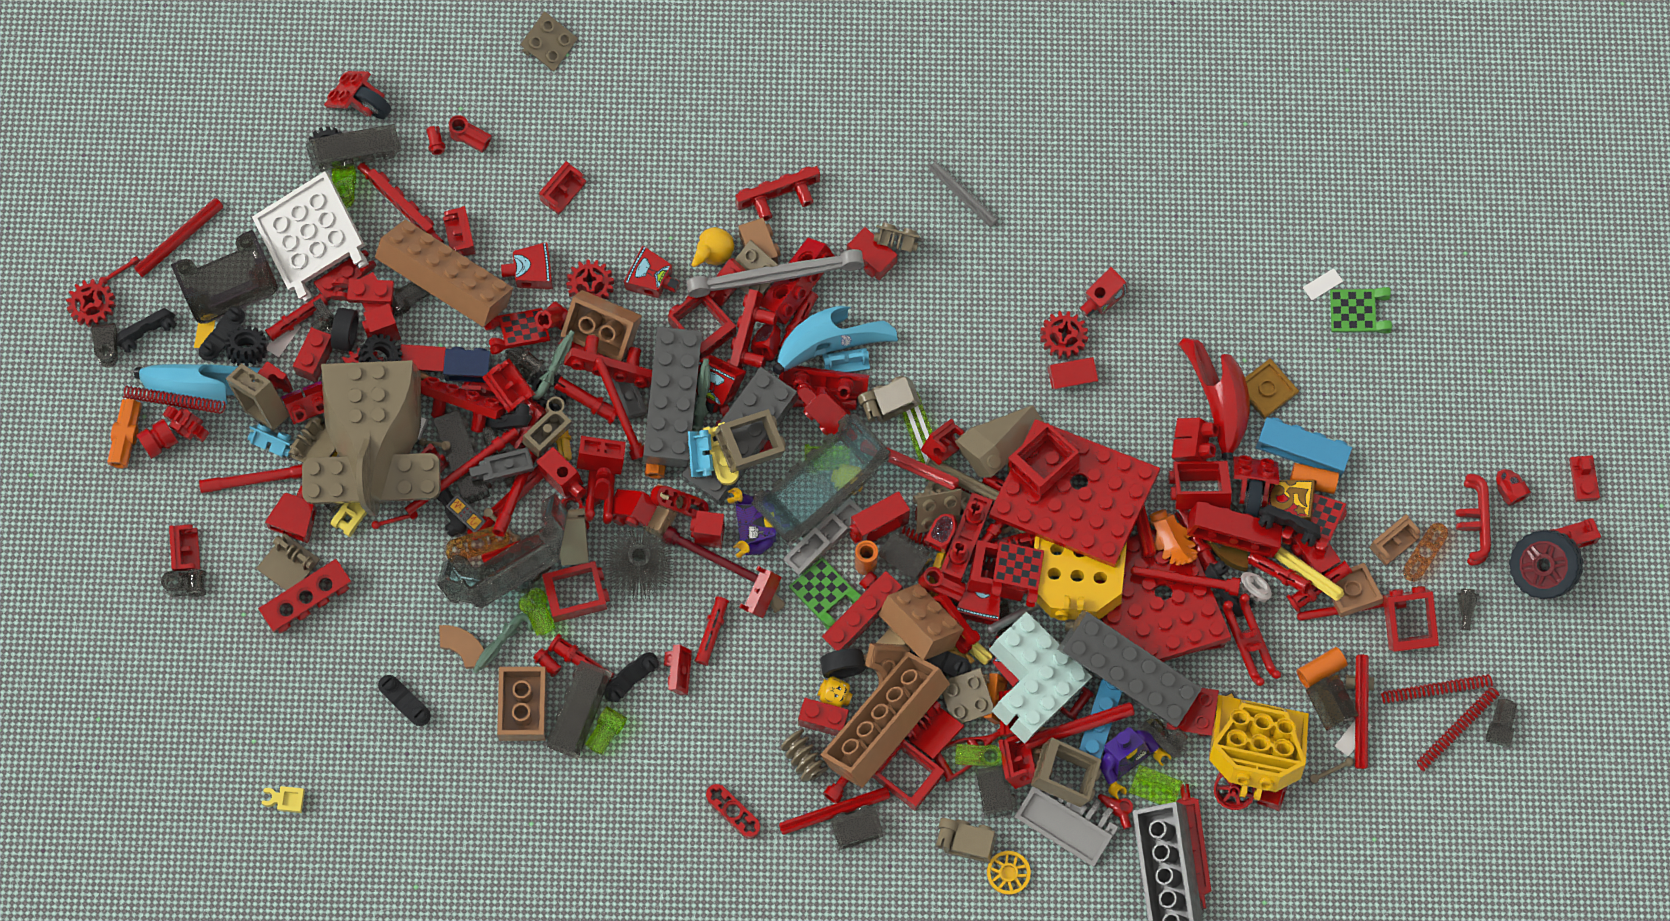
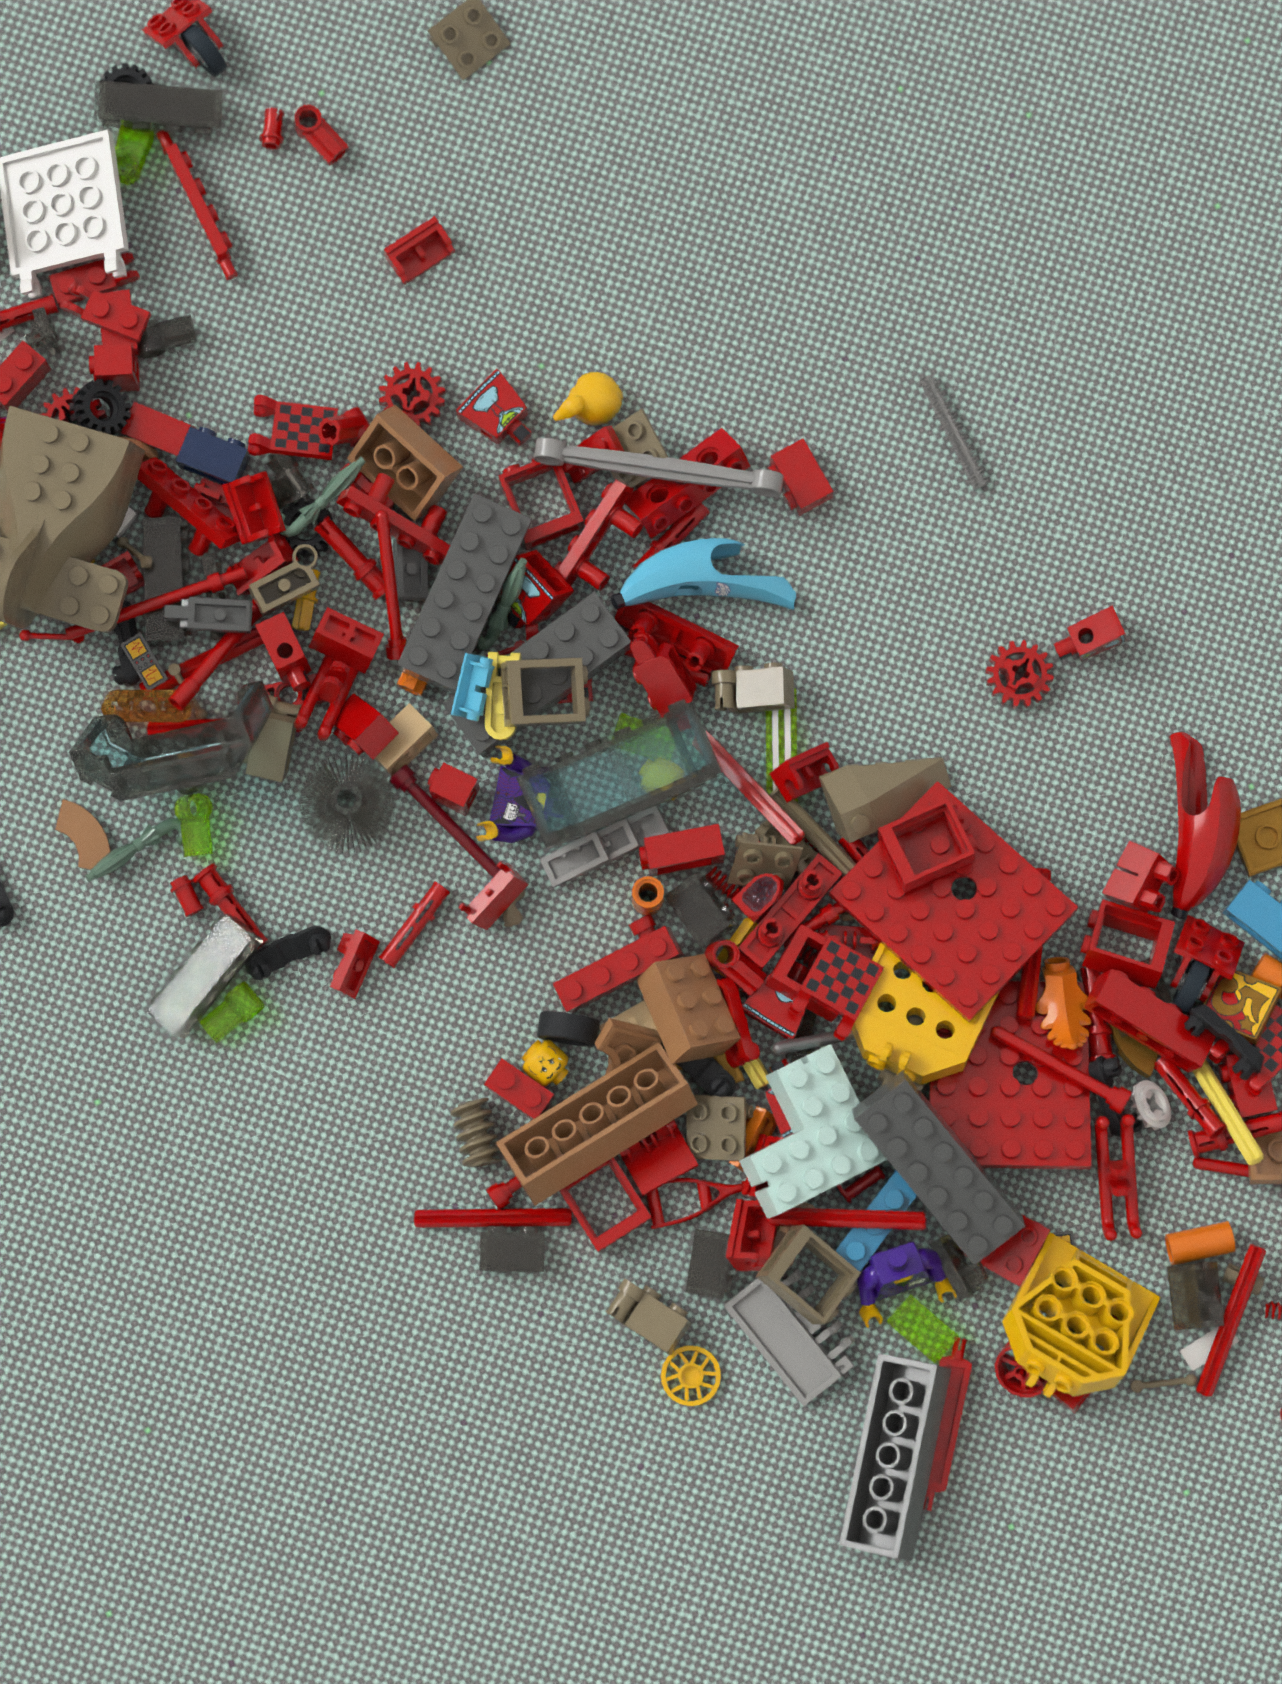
camera: 20 degrees right, 10 degrees up
(344, 329) = (66, 356): black tyre -> none
(444, 272) = (221, 320): medium nougat brick -> none
(459, 231) = (262, 269): red hinge -> none
(519, 419) = (254, 559): black piece -> none
(522, 704) = (134, 942): medium nougat brick -> none
(530, 267) = (340, 348): red torso -> none
(581, 609) = (221, 809): red window -> none
(670, 504) = (421, 729): red beam -> none
(716, 803) = (358, 1149): red beam -> none
(761, 235) = (657, 402): medium nougat brick -> none
(767, 341) = (618, 554): red rock -> none
(785, 184) = (692, 343): red plate -> none
(822, 589) = (578, 916): bright green flag -> none
(847, 360) = (717, 614): medium azure hinge -> none
(909, 237) = (857, 469): dark tan hinge -> none
(974, 755) = (698, 1208): clear neon green piece -> none
(1072, 373) = (1012, 732): red hinge -> none
(1120, 807) = (867, 1339): red animal -> none

